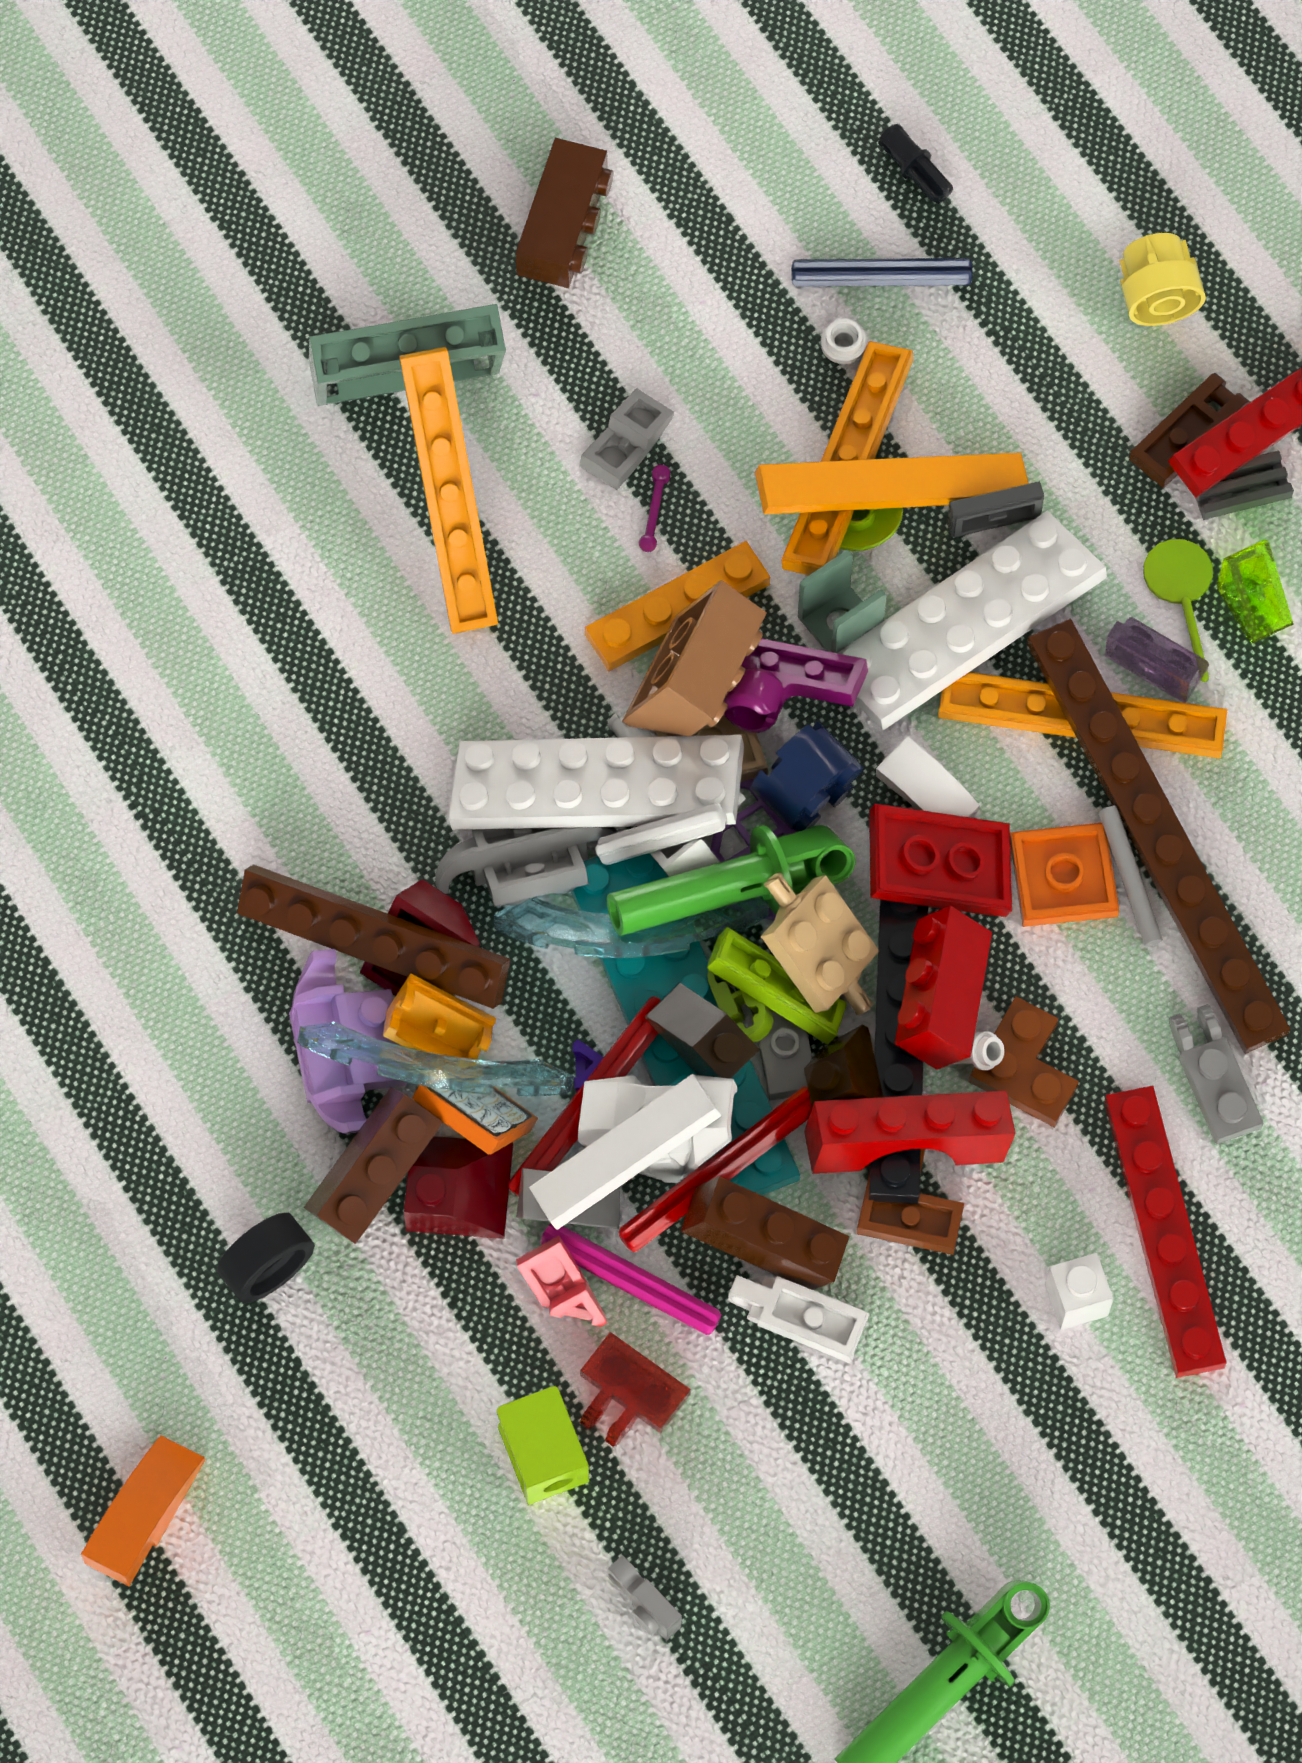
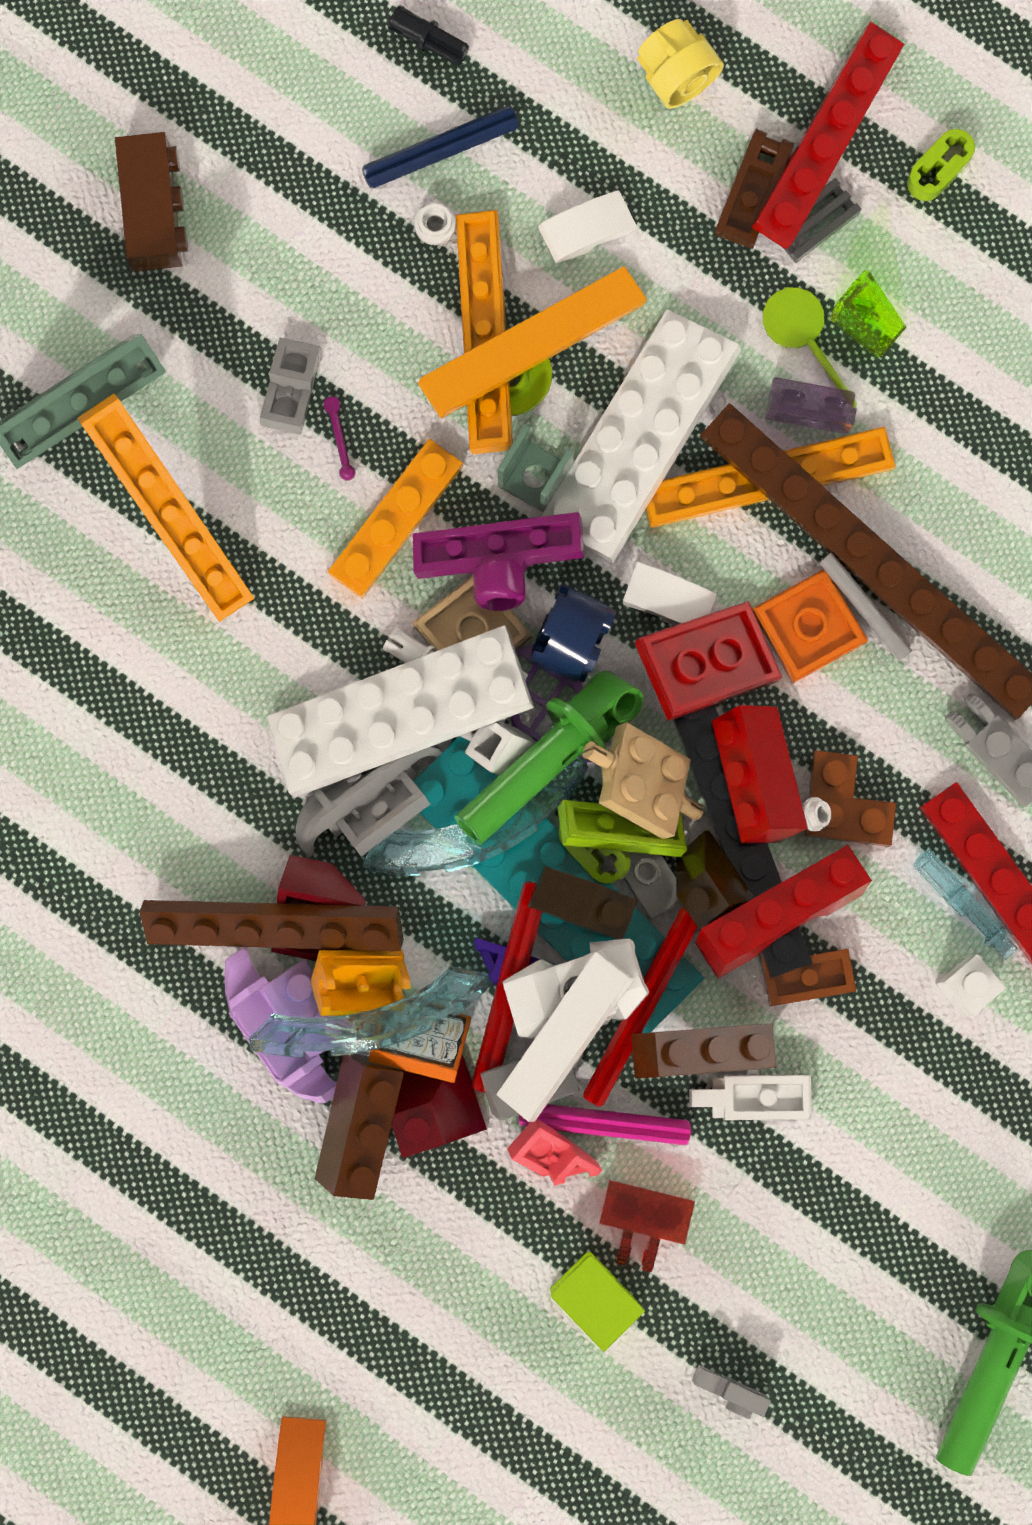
camera: 25 degrees left, 15 degrees up
(265, 1257) = (304, 1240): black tyre -> none
(661, 834) = (475, 740): white axle -> none
(697, 663) = (441, 576): medium nougat slope -> none
(990, 400) = (587, 225): none -> white slope
(995, 509) = (624, 326): dark grey tile -> none
(1110, 1211) = (964, 902): none -> clear light blue piece

